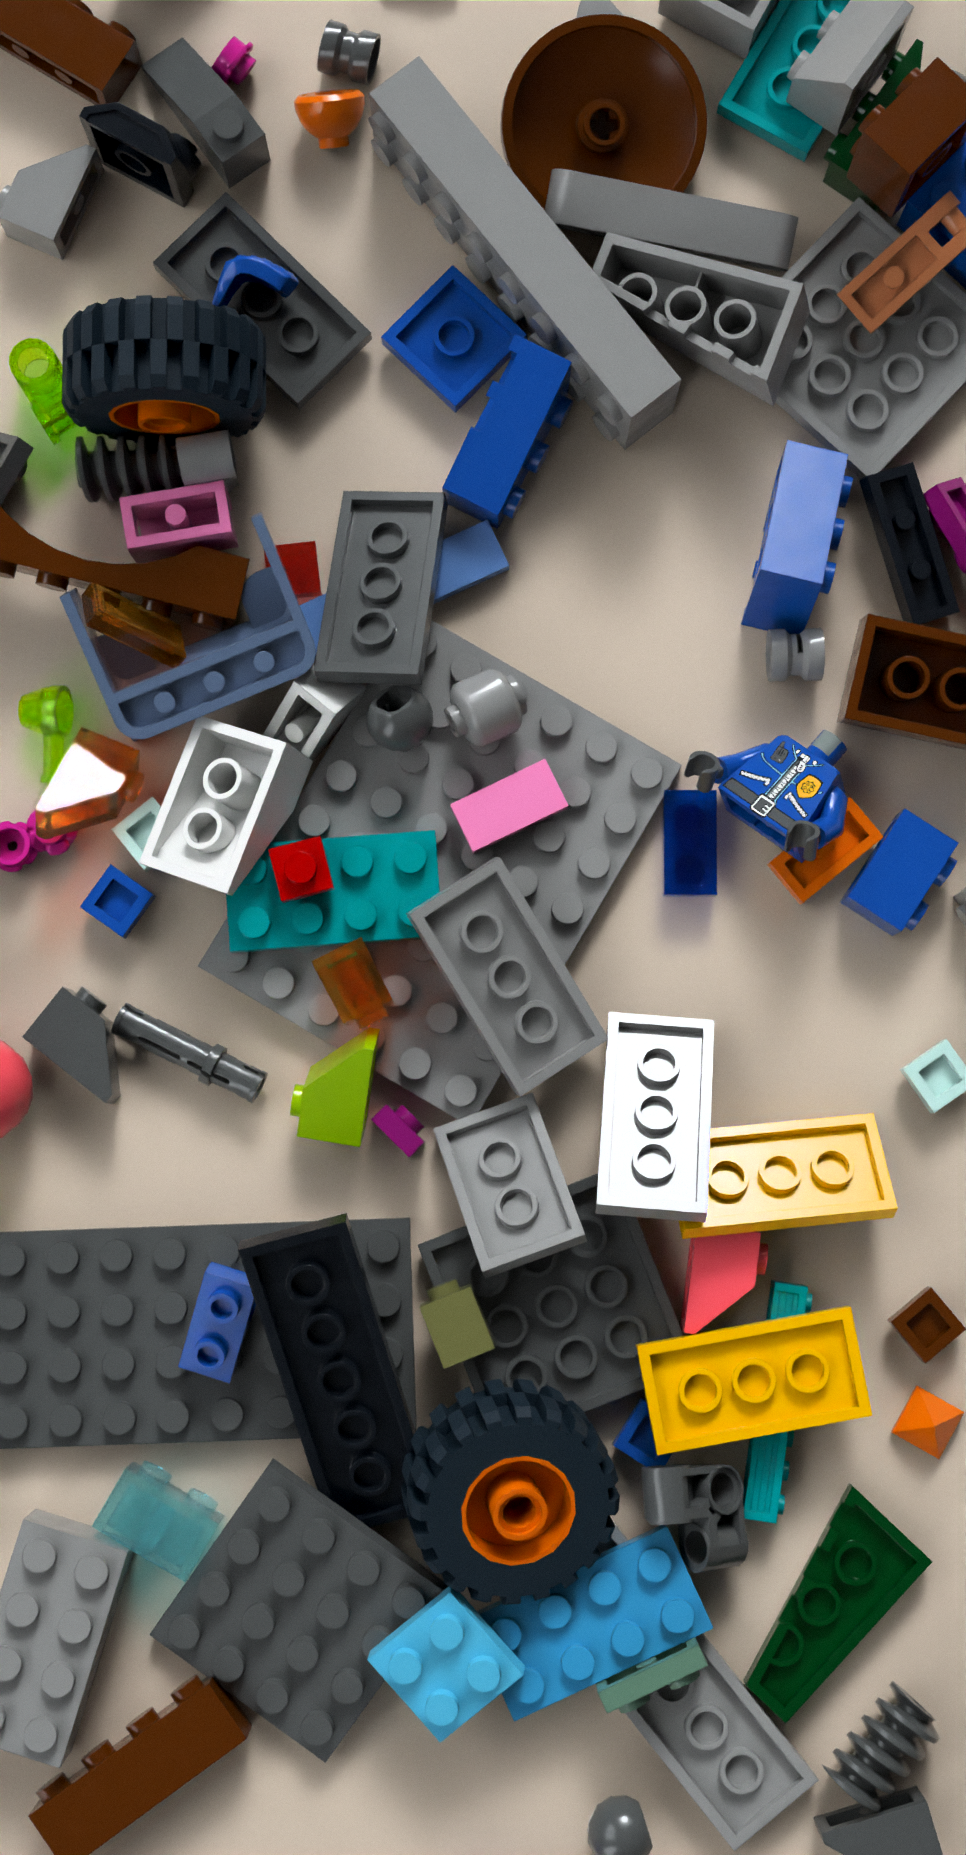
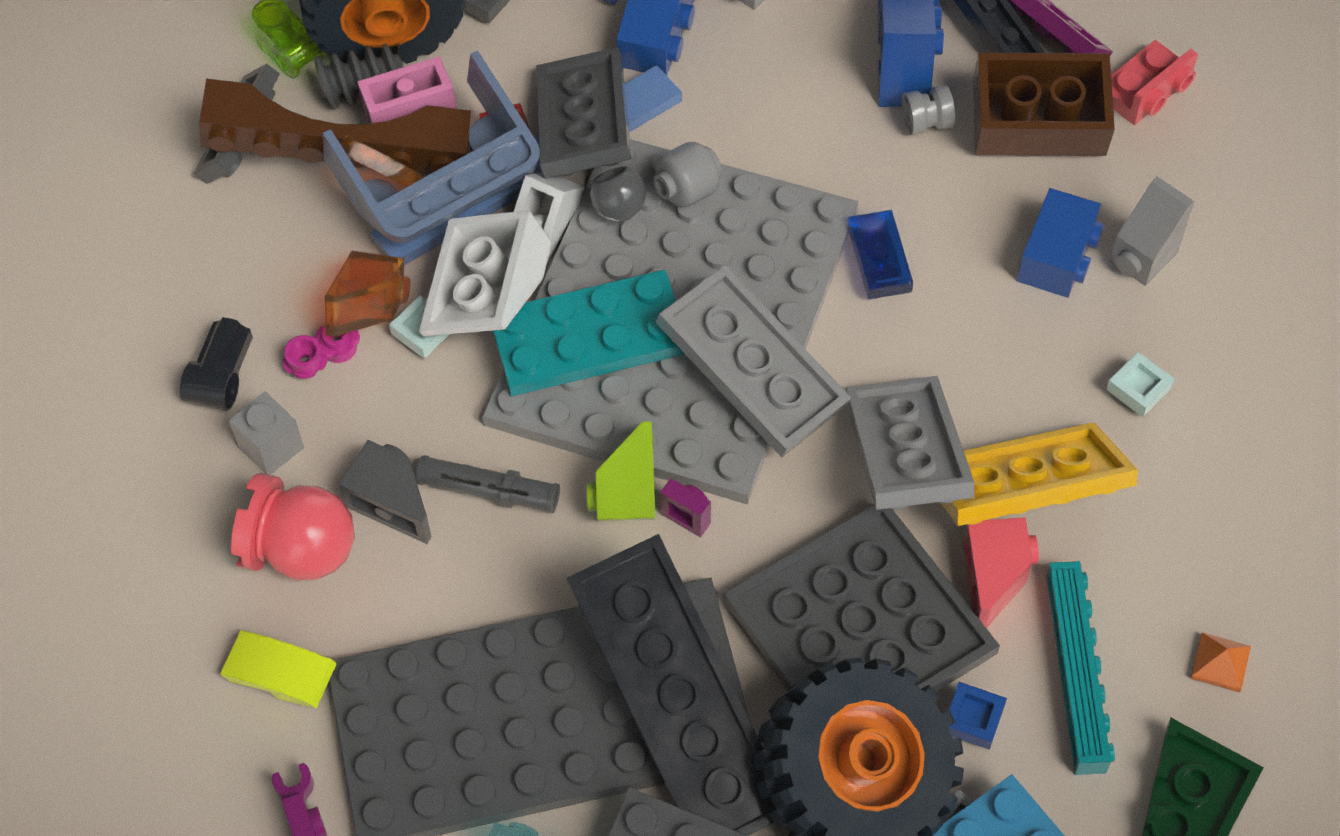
camera: 10 degrees left, 25 degrees down
(50, 714) = (320, 256): clear neon green bar -> none
(117, 901) = (403, 380): blue plate -> none
(207, 459) = (424, 42): light grey piece -> none
(218, 1323) = (559, 676): blue plate -> none
(301, 869) = (559, 308): red plate -> none
(354, 984) = (621, 378): clear orange slope -> none
(456, 1323) = (775, 637): olive brick -> none
(509, 806) = (723, 244): bright pink tile -> none
(509, 1185) = (795, 524): light grey plate -> none
(706, 1508) = (1041, 754): dark grey piece -> none
(753, 1380) = (1053, 636): yellow plate -> none
(781, 790) = (944, 199): torso -> none
(808, 877) = (993, 240): orange plate -> none
(926, 1324) = (1193, 576): reddish brown plate -> none

